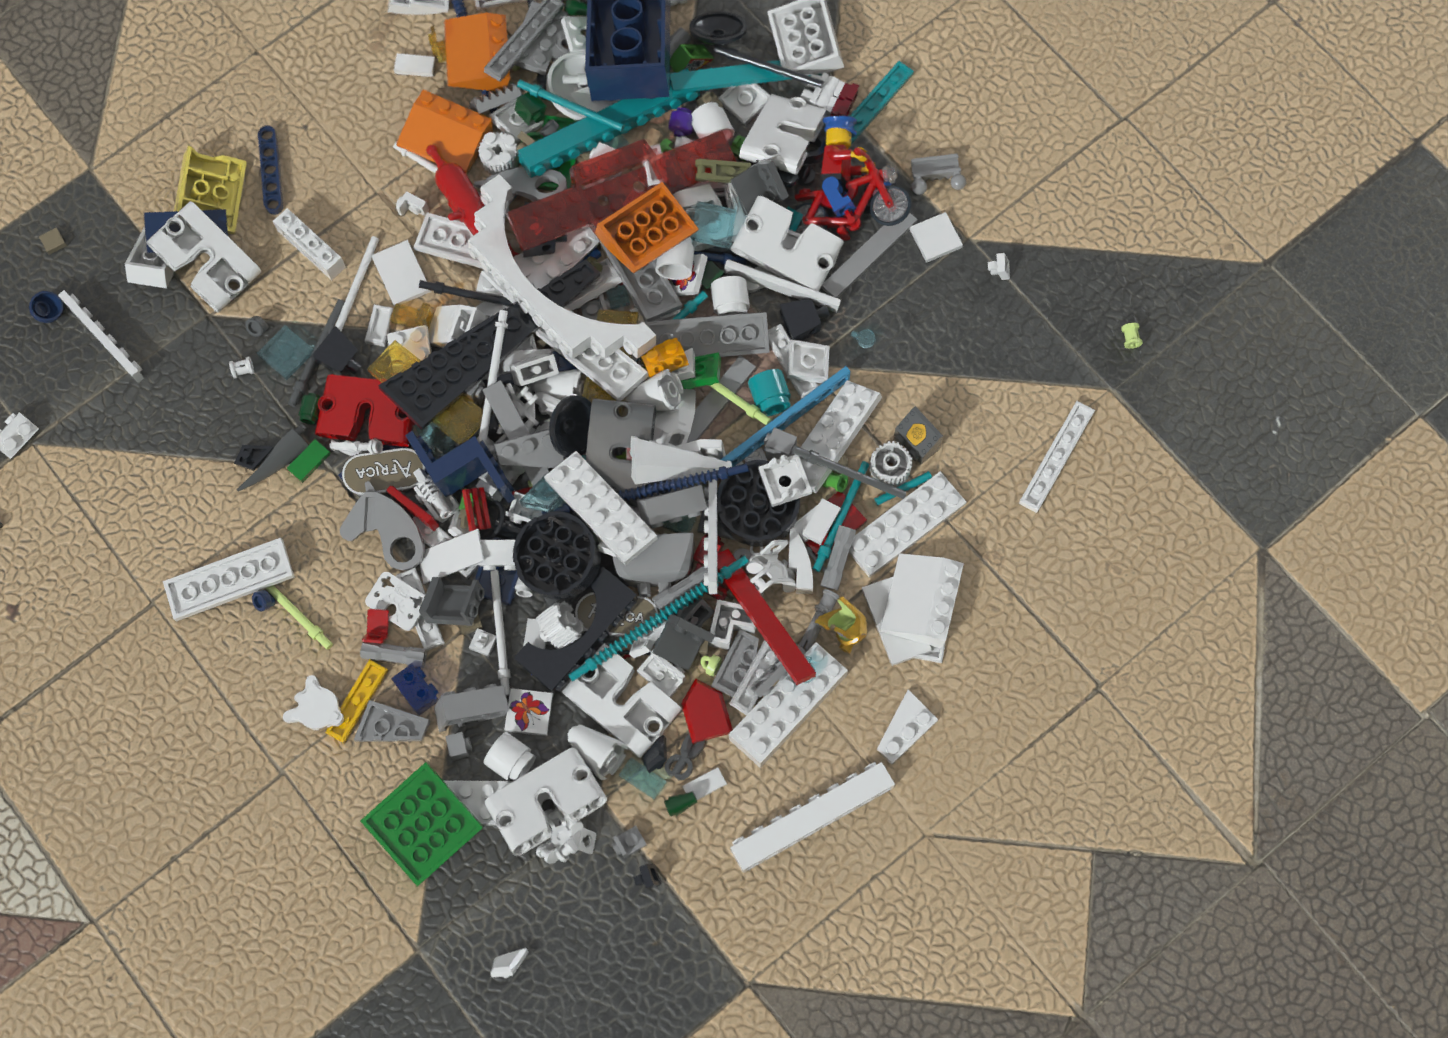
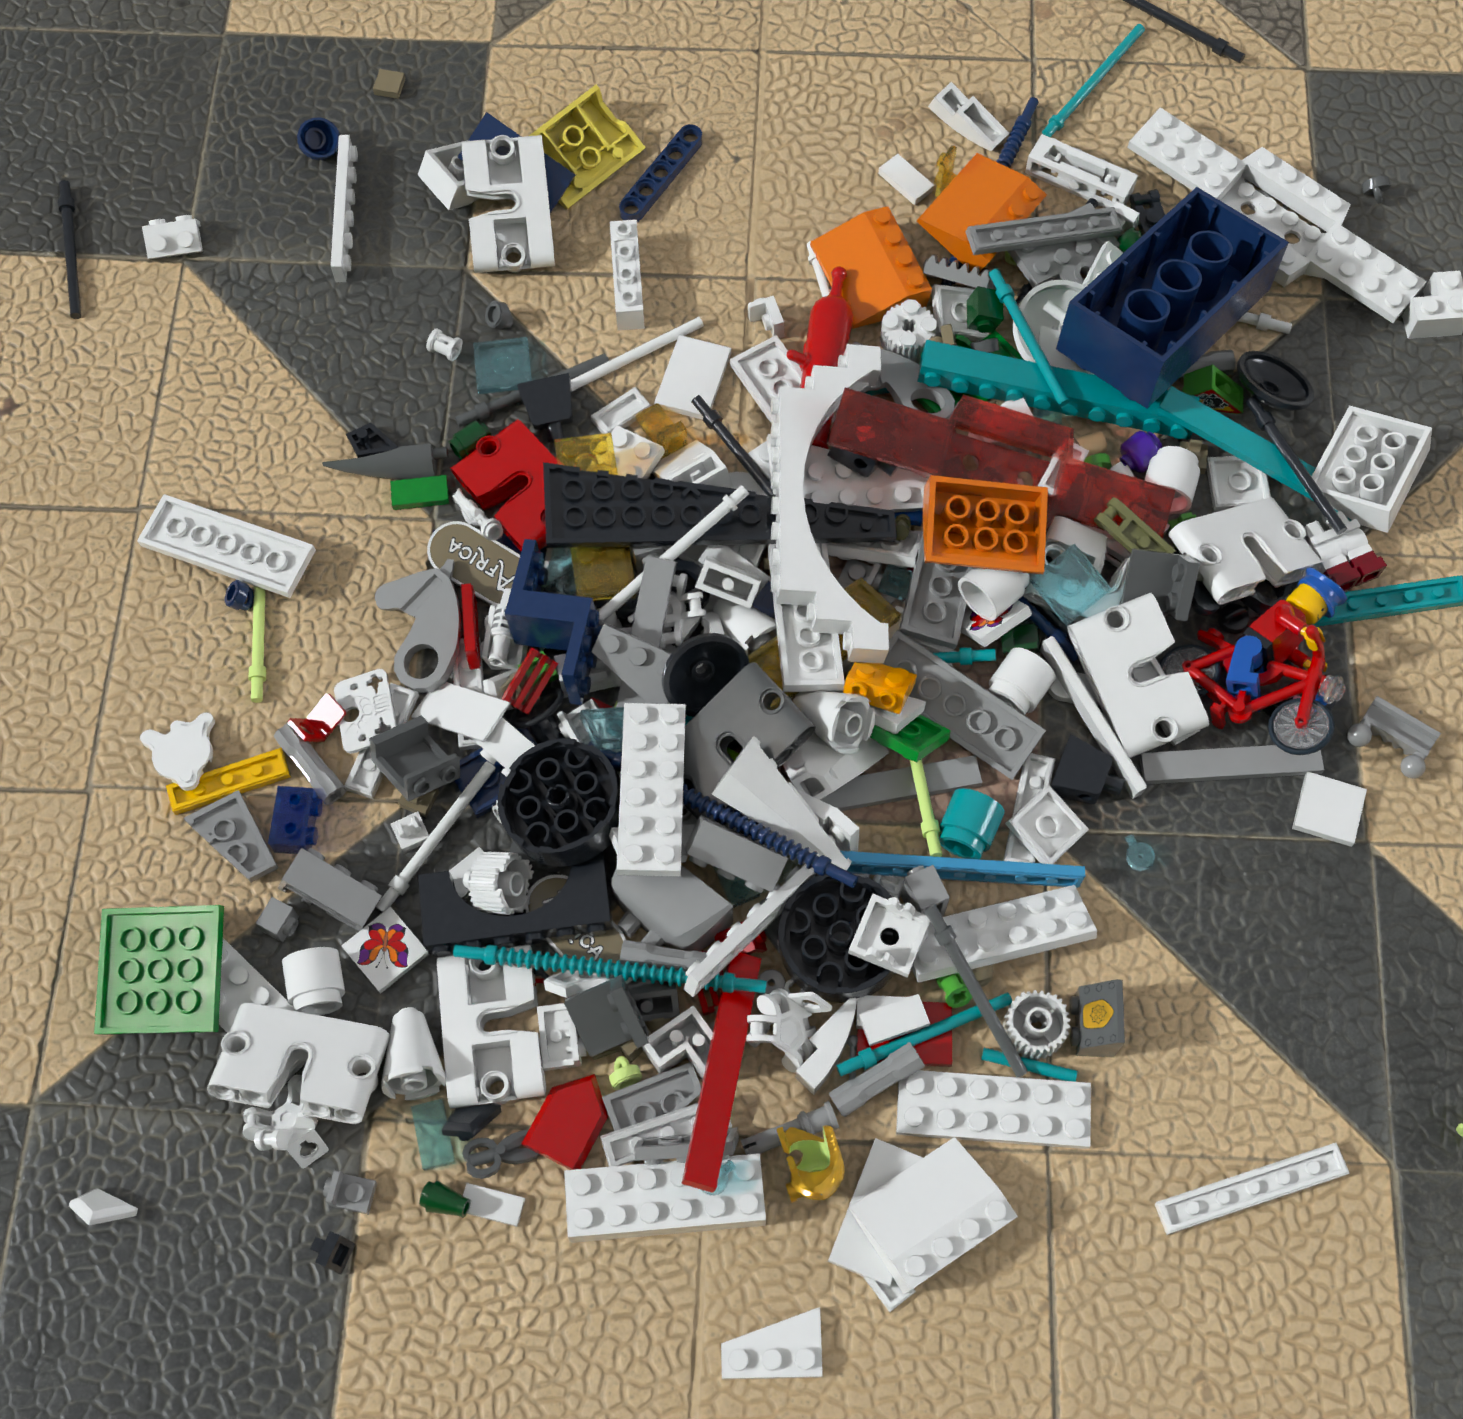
camera: 40 degrees right, 5 degrees down
(795, 220) = (1174, 654): teal tile -> none
(811, 817) = (572, 1355): white brick -> none
(1000, 266) = (1379, 905): white tile -> none

